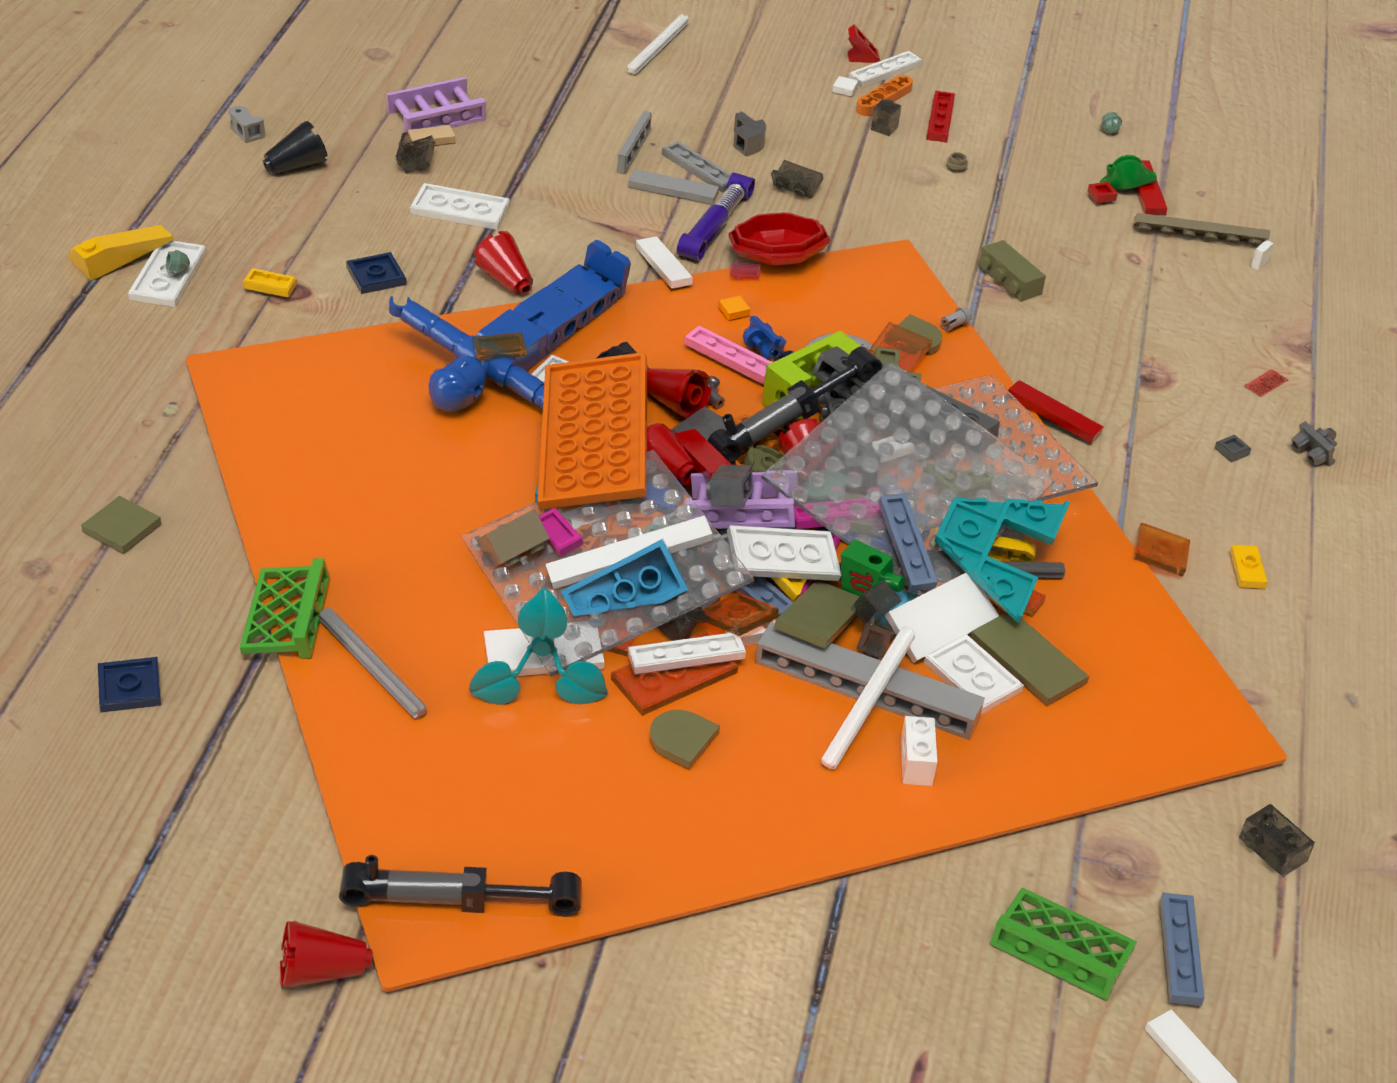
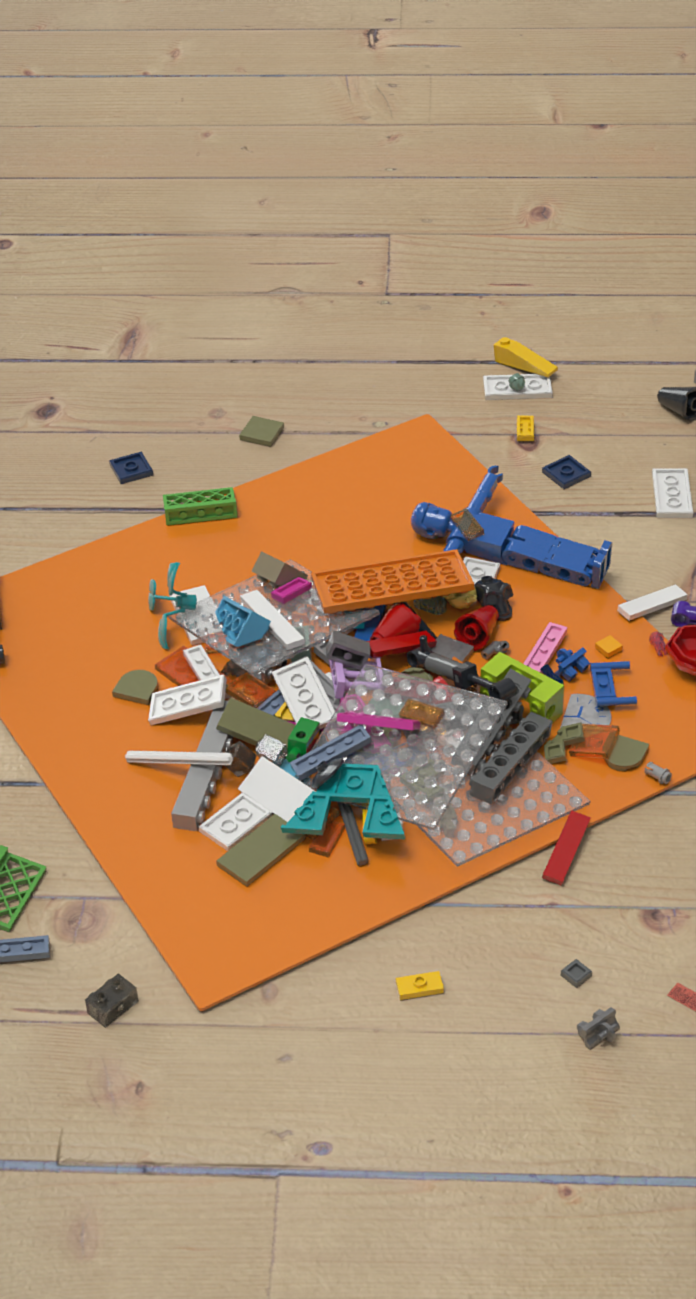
camera: 85 degrees right, 0 degrees up
(373, 663) = (165, 547): light grey axle -> none
(504, 262) = (598, 521): red cone -> none
(745, 676) = (187, 699): none -> white tile
(804, 323) = (604, 686): none -> blue plate
(878, 440) = (426, 714): none -> clear orange tile
(880, 480) = (381, 721): none -> dark pink tile
(918, 751) = (143, 794): white brick -> none
(960, 550) = (325, 771): none -> black dish
(1161, 549) = (415, 925): clear orange tile -> none

